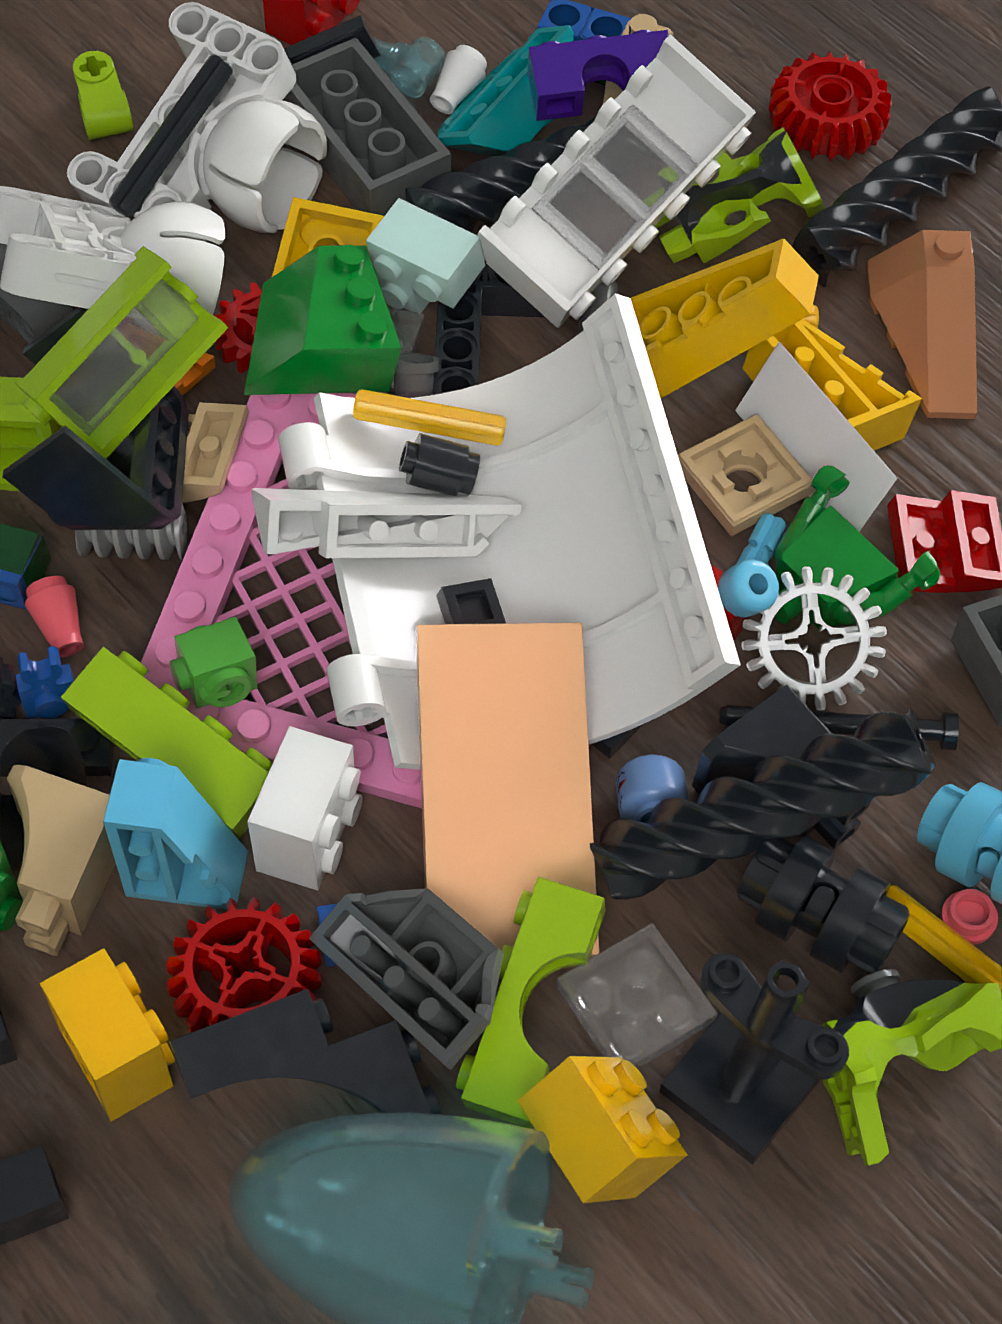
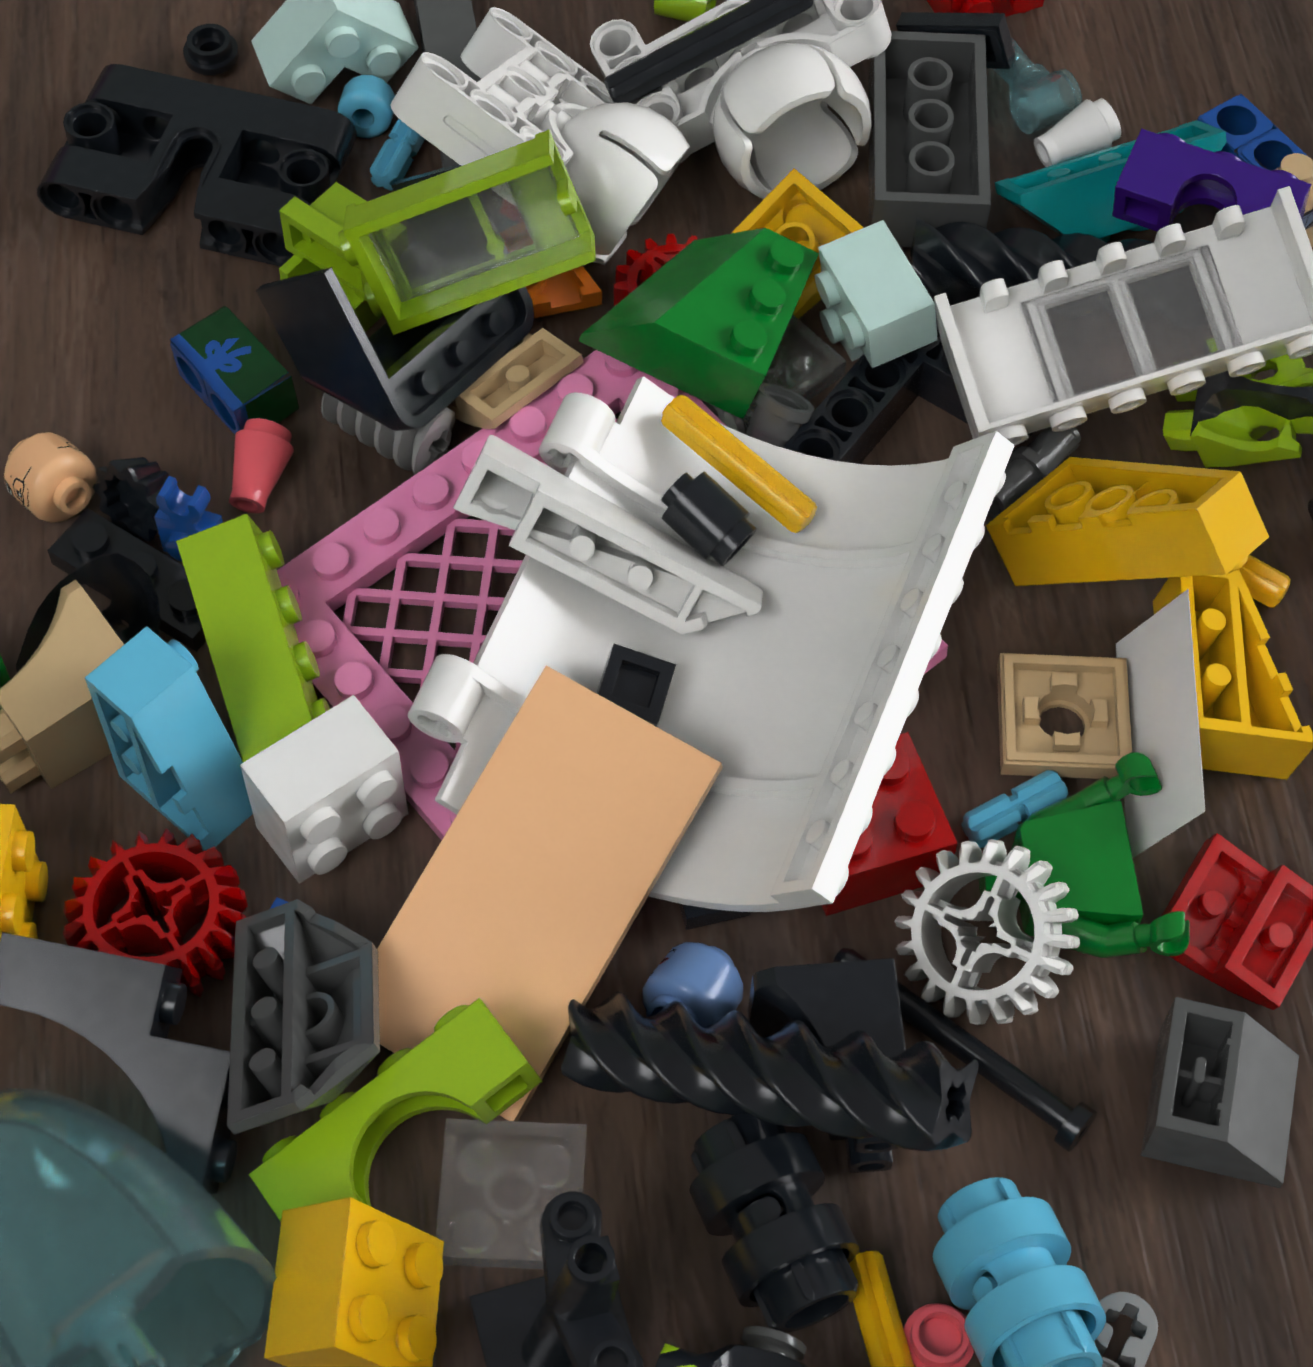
camera: 35 degrees right, 0 degrees up
(215, 664) = (351, 595): bright green brick -> none
(748, 588) = (936, 832): medium azure piece -> none

